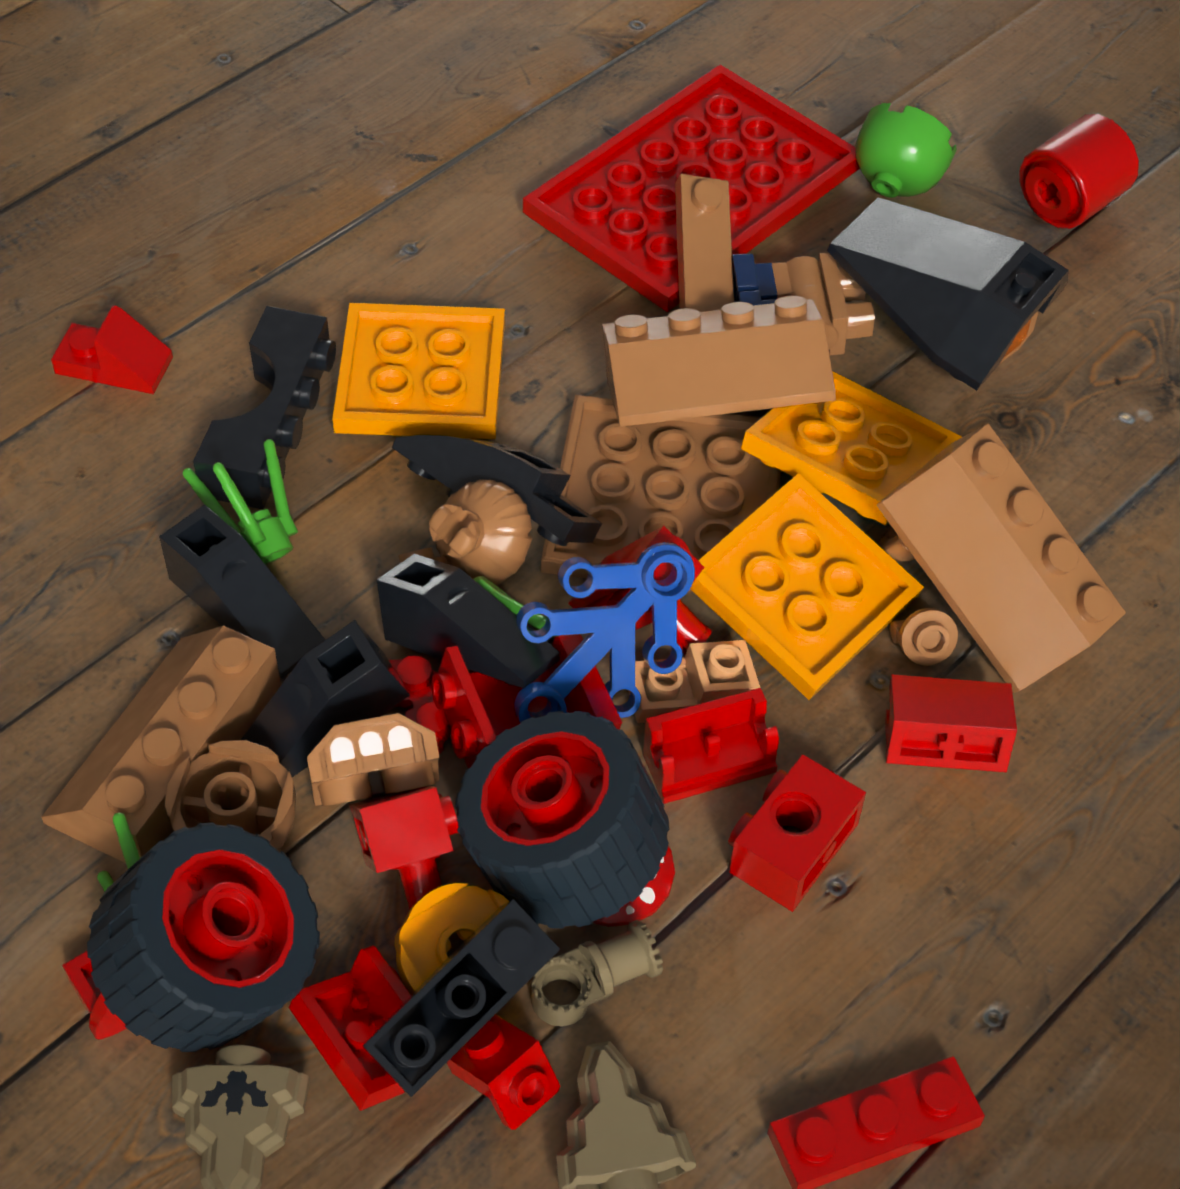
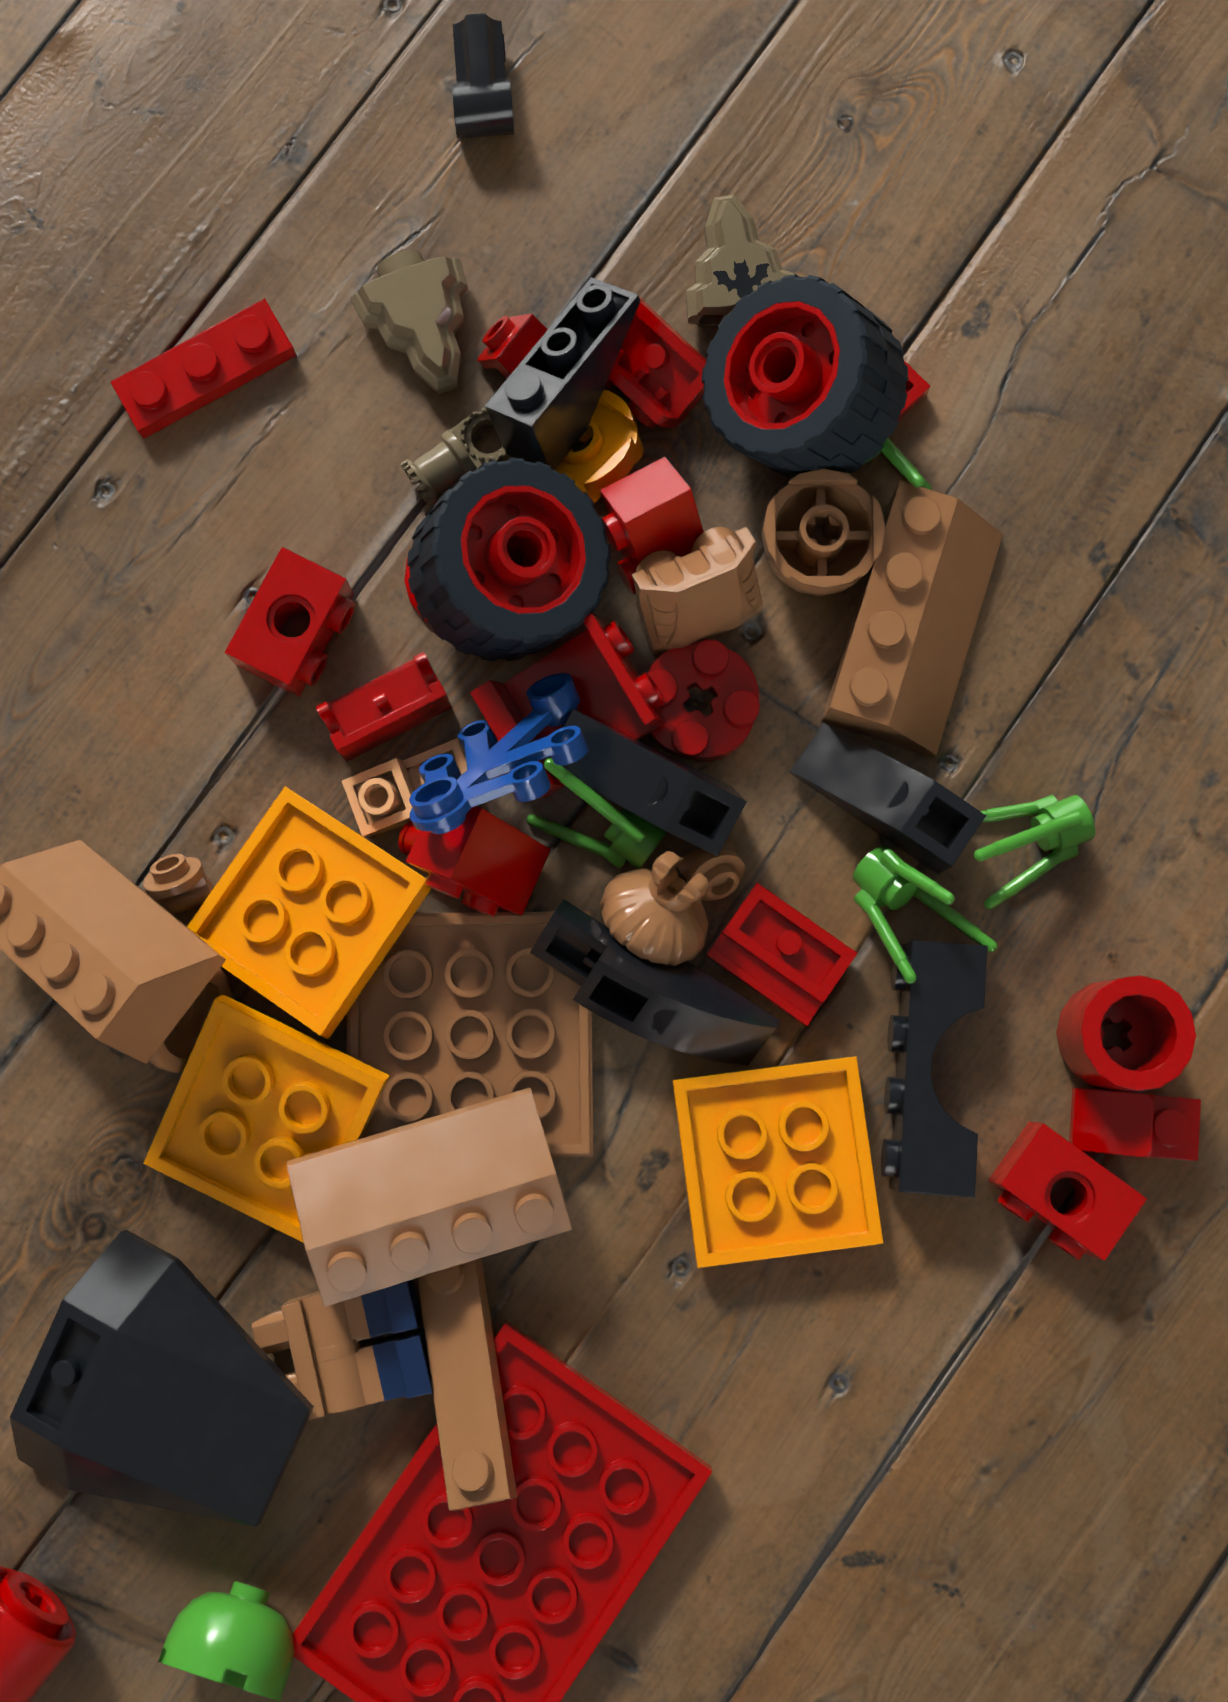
camera: 170 degrees right, 30 degrees up
(90, 555) = (1057, 827): none -> bright green plant
(99, 388) = (1156, 1034): none -> red piece
(189, 316) = (1101, 1201): none -> red brick
(329, 686) = (762, 653): black slope -> none
(374, 503) = (781, 954): none -> red plate
(950, 723) = (148, 776): red hinge -> none

